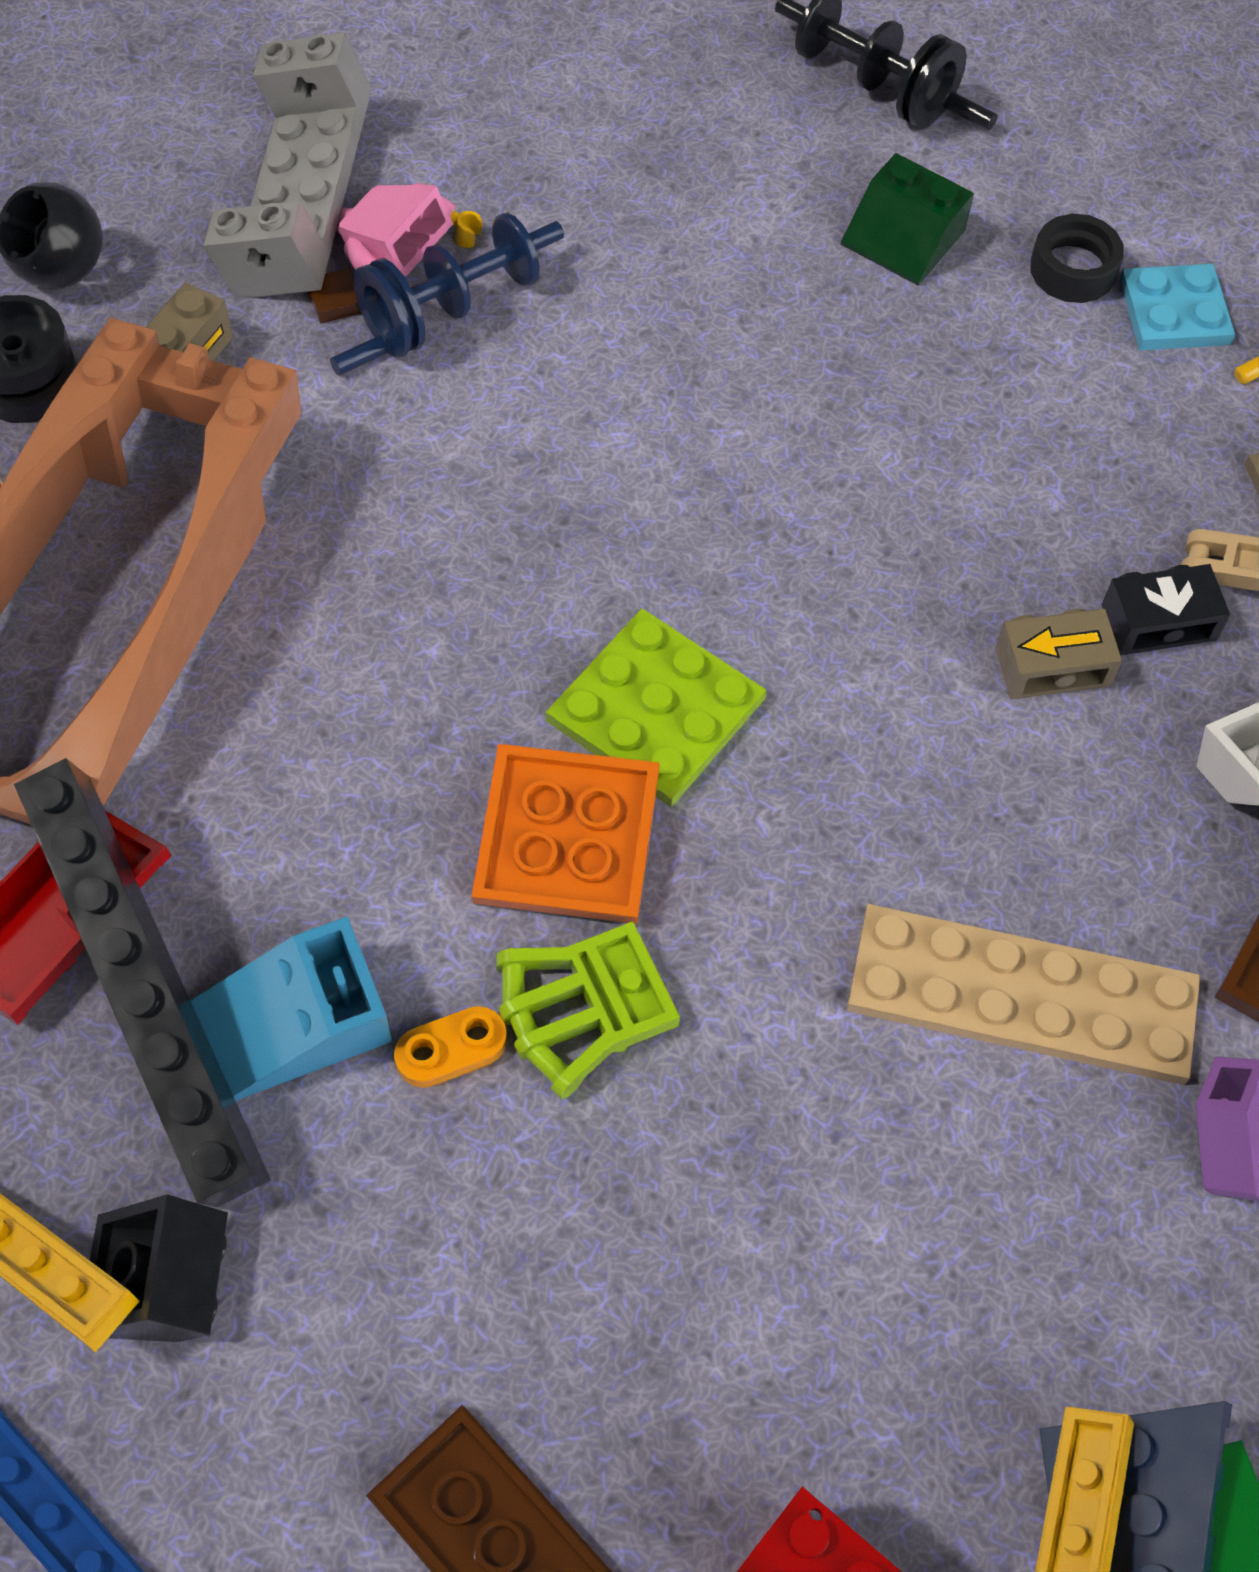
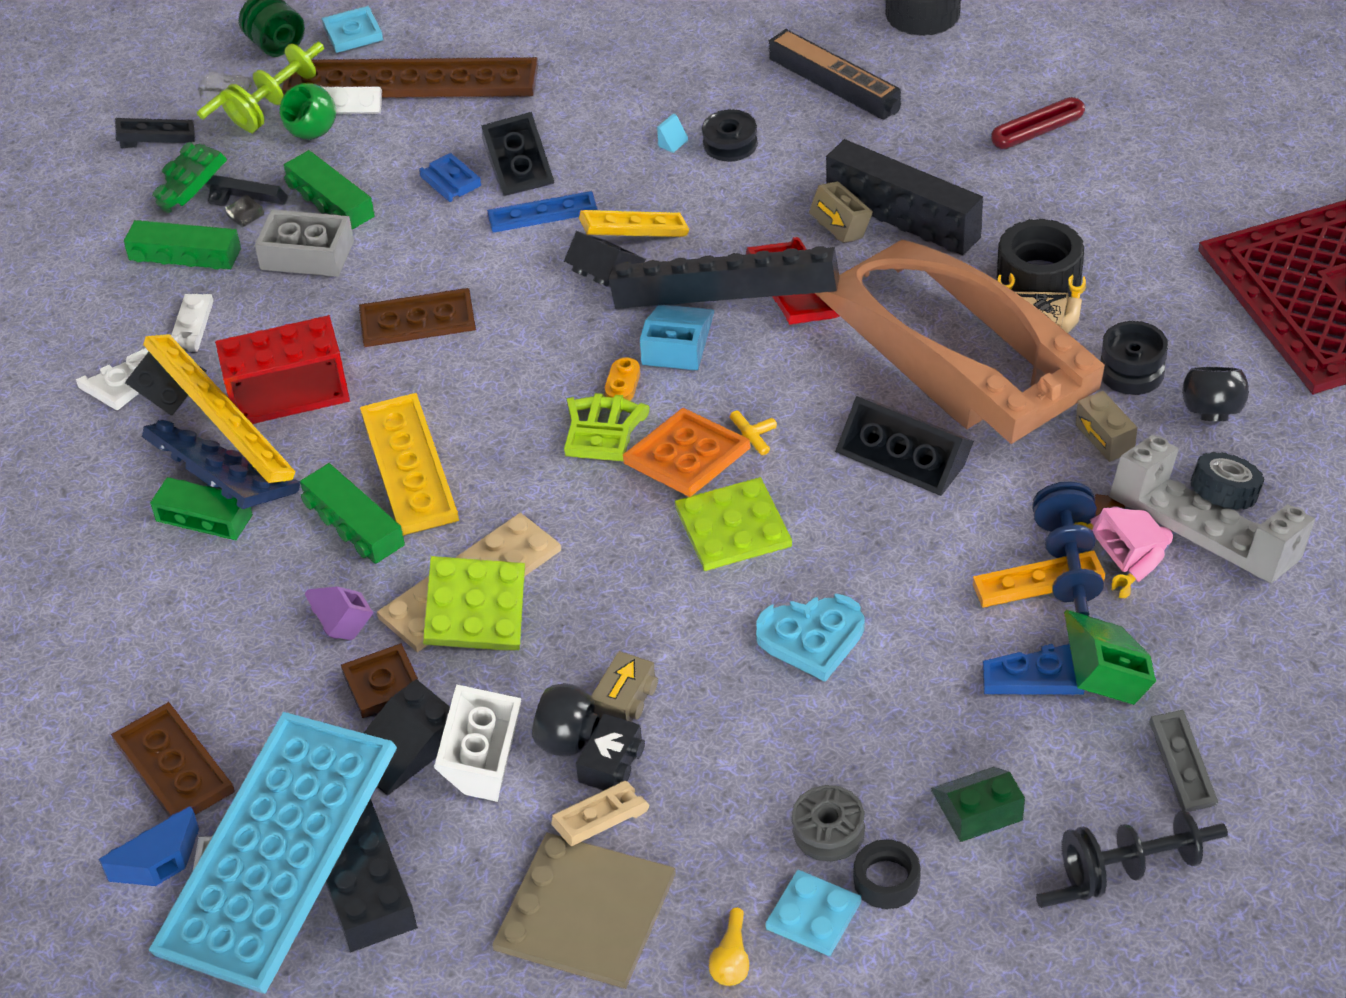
camera: 130 degrees right, 15 degrees down
(217, 174) = (1227, 480): none -> black wheel
(363, 561) = (903, 445): none -> black slope
(452, 783) = (754, 431): none -> yellow piece
(530, 318) = (1027, 580): none -> light orange plate
(614, 172) = (1108, 659): none -> green slope
(670, 249) = (1034, 673): none -> blue wing
(705, 75) = (1183, 761): none -> dark grey hinge
(792, 501) = (813, 634): none -> medium azure plate
(867, 1270) = (409, 464): none -> yellow plate
(1048, 1270) = (351, 513): none -> green brick
(1061, 337) = (832, 806): none -> dark grey wheel
(1078, 932) = (474, 603): none -> lime plate
(1178, 671) = (564, 720): none -> black wheel

